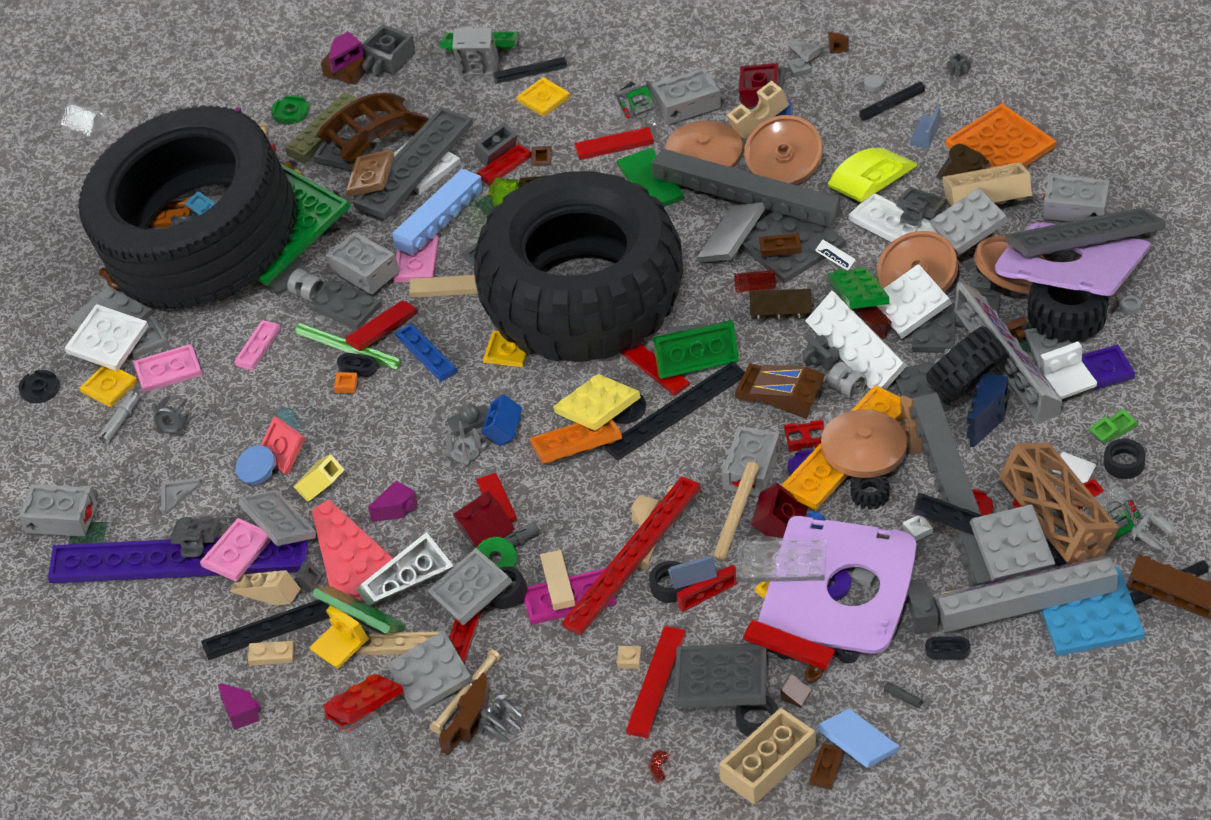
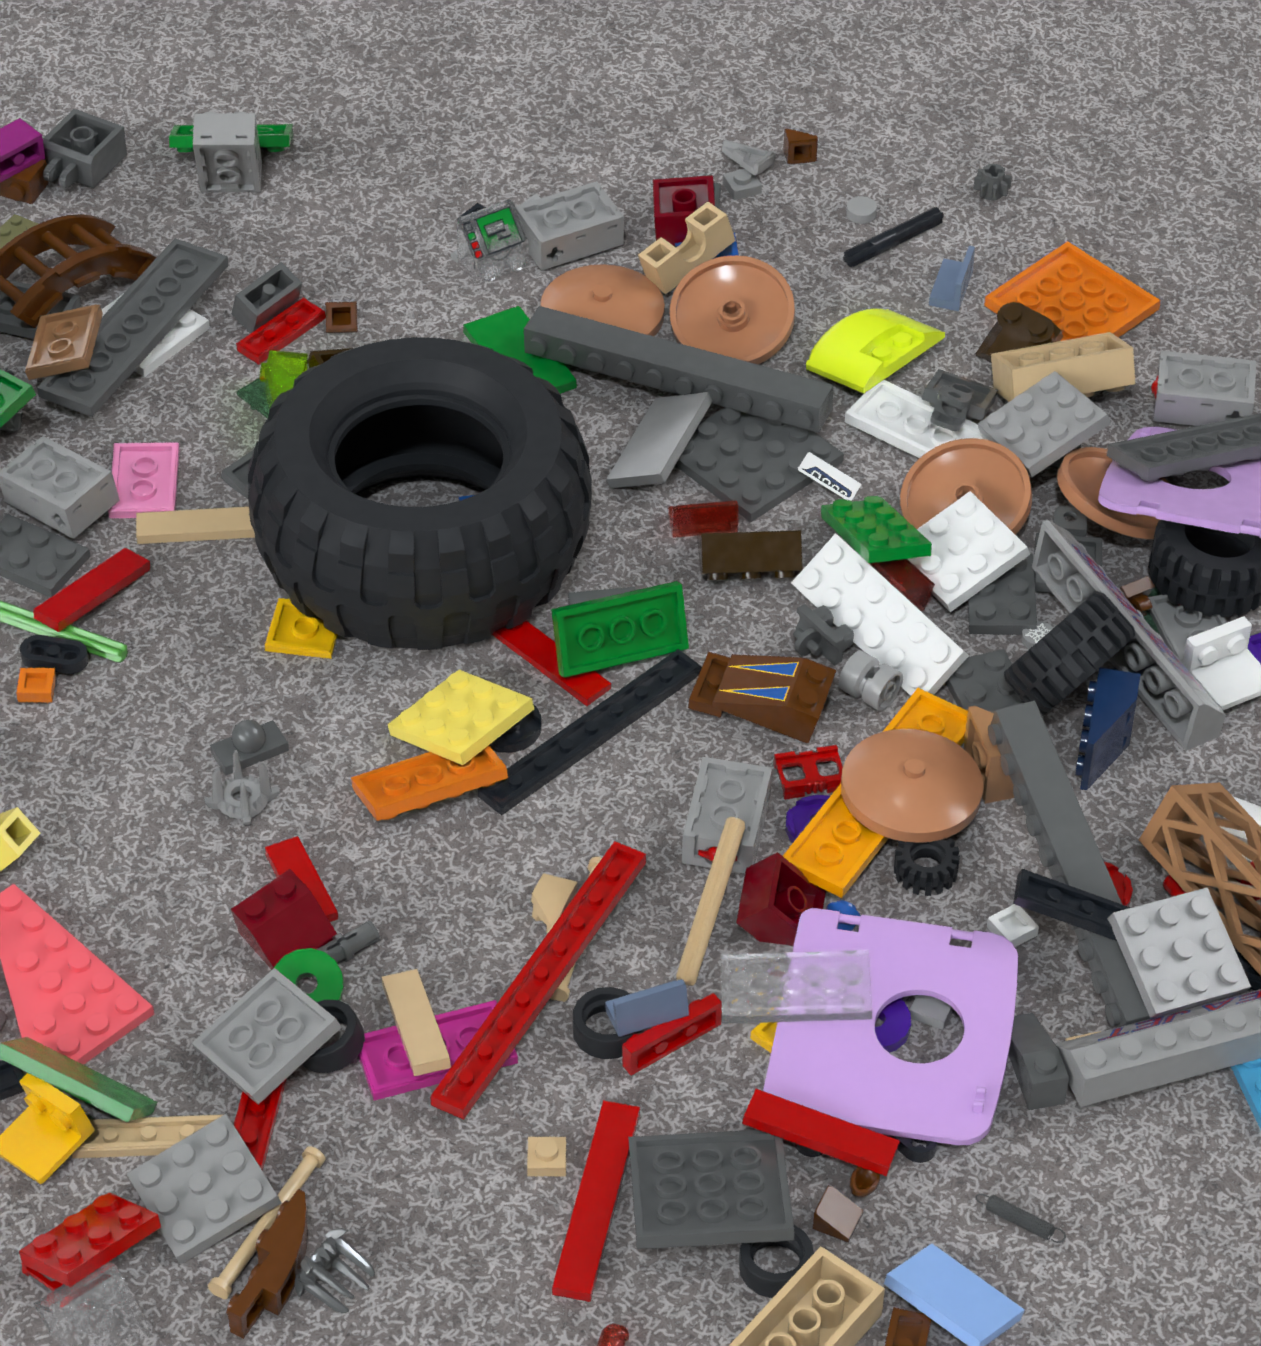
camera: 10 degrees left, 0 degrees up
(393, 503) = (126, 890): magenta slope -> none
(409, 568) = (161, 1003): white wedge -> none
(426, 352) = (169, 634): blue tile -> none
(437, 212) = (176, 405): light blue brick -> none
(502, 420) = (304, 747): blue brick -> none
(531, 69) = (314, 183): black axle -> none
(543, 96) = (338, 225): yellow tile -> none
(614, 143) = (456, 299): red tile -> none
(780, 244) = (741, 460): reddish brown plate -> none
(947, 648) = (1086, 1133): black plate -> none

